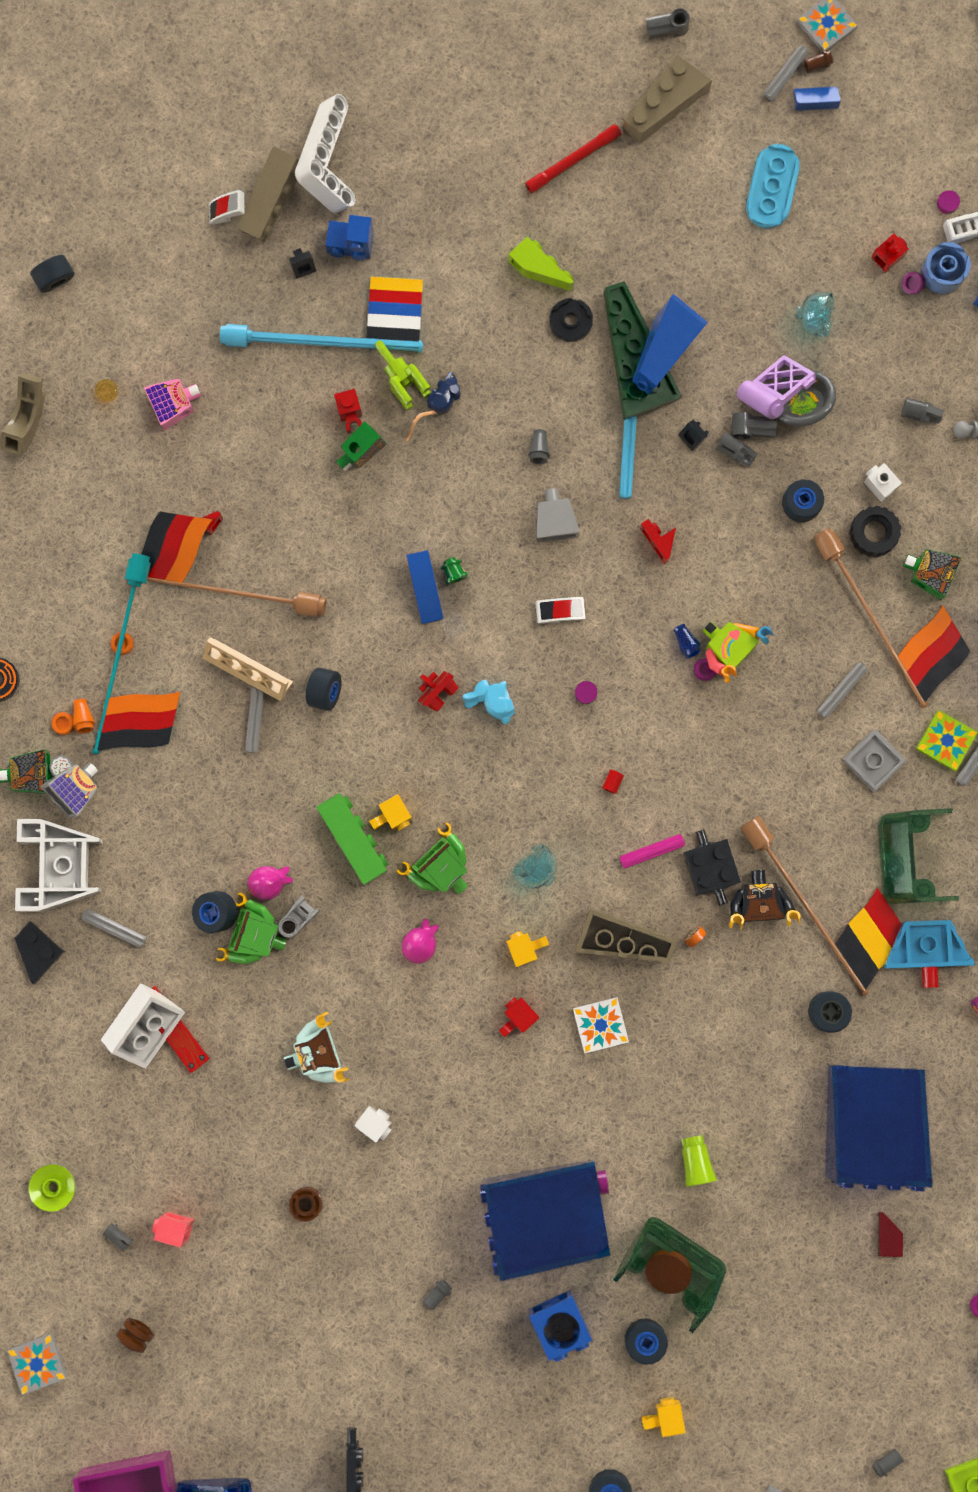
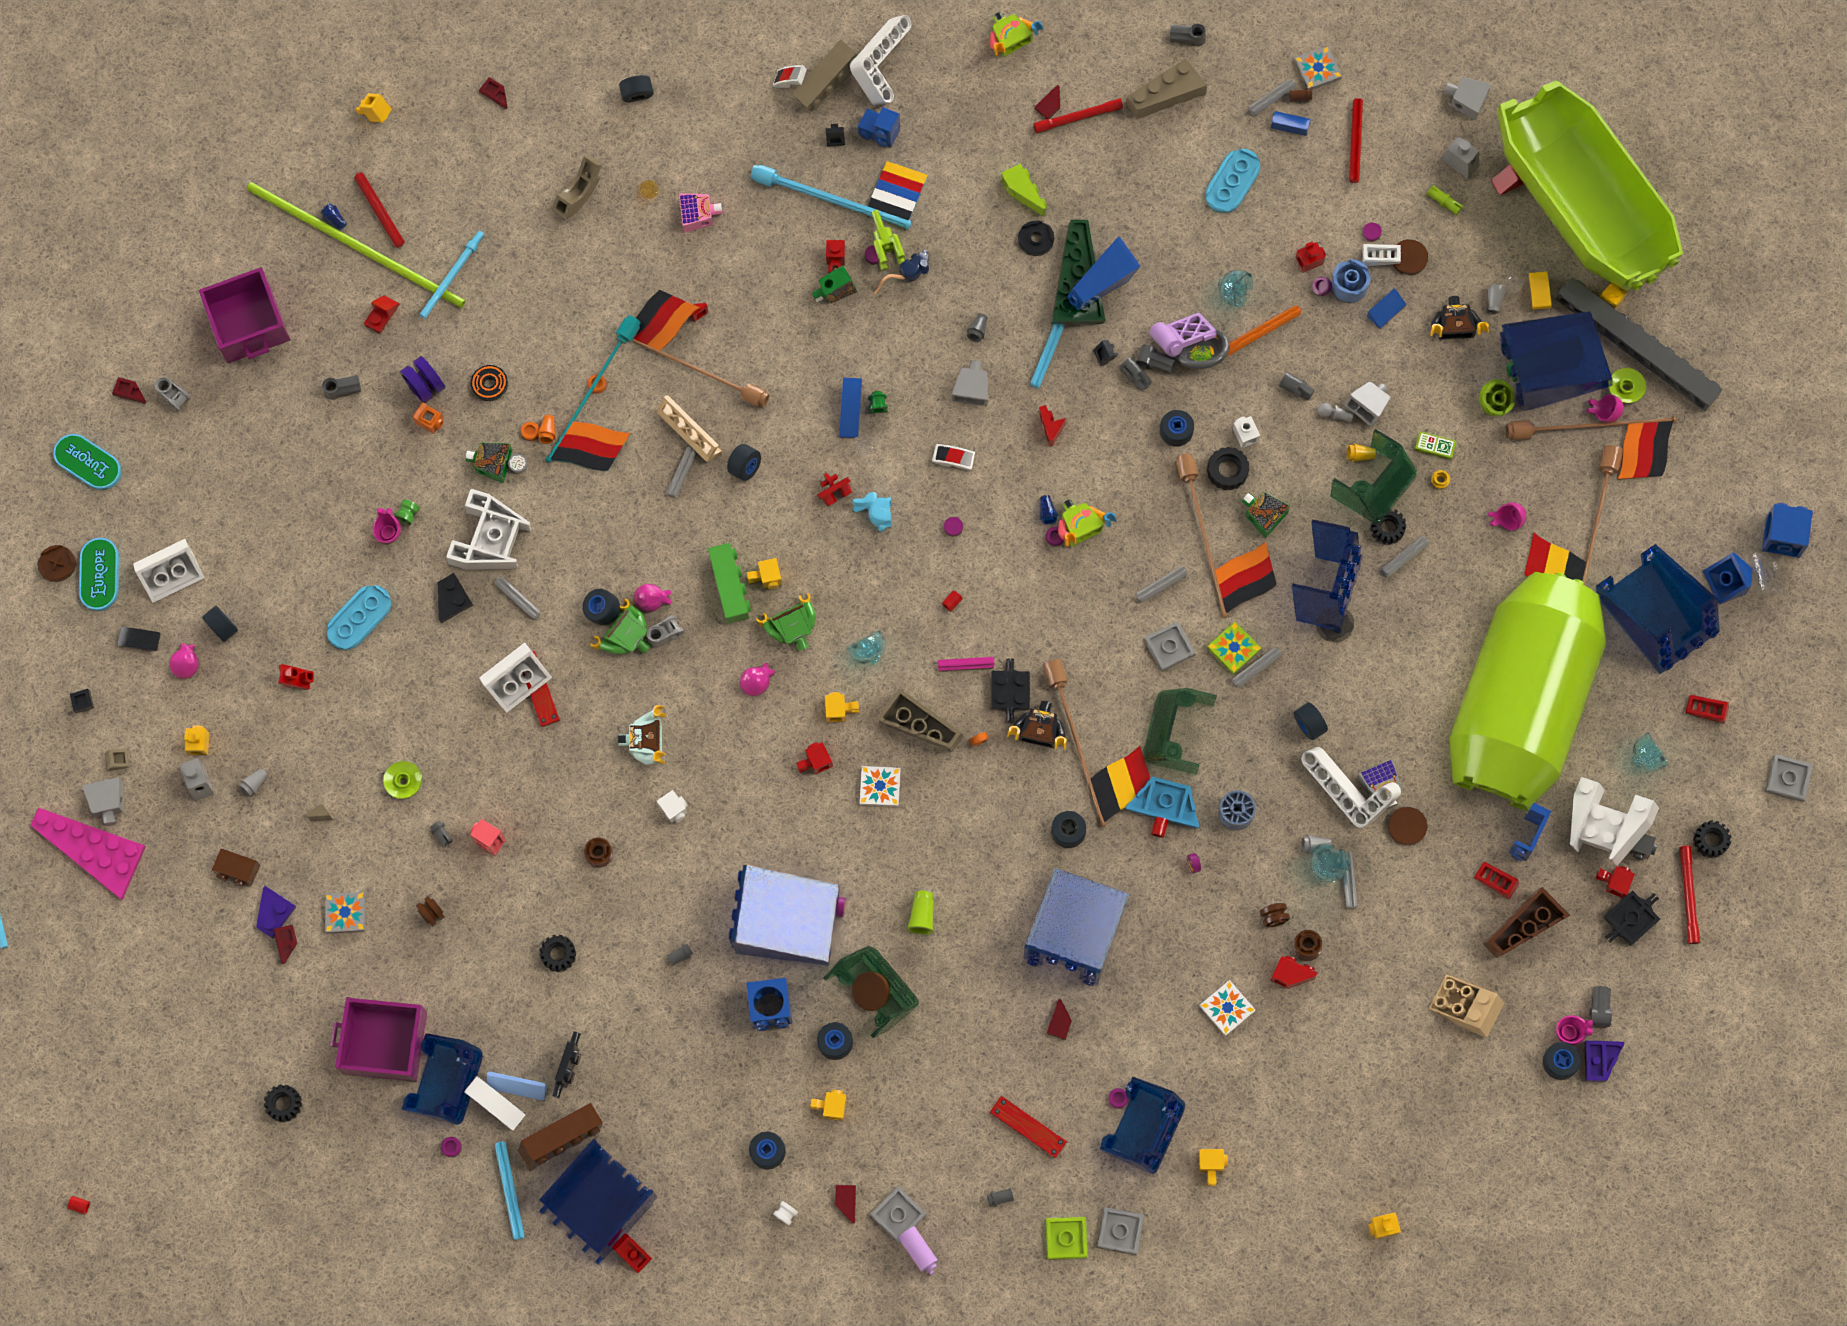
camera: 20 degrees right, 10 degrees down
(72, 788) = (520, 479): torso -> none
(283, 1337) = (555, 941): none -> black tyre
(389, 395) = (871, 255): none -> magenta tile
(466, 81) = (1012, 33): none -> lime torso
(536, 153) = (1050, 103): none -> dark red tile
(864, 351) = (1264, 329): none -> orange axle
(892, 1371) = (1028, 1127): none -> red tile
(896, 97) = (1356, 132): none -> red axle

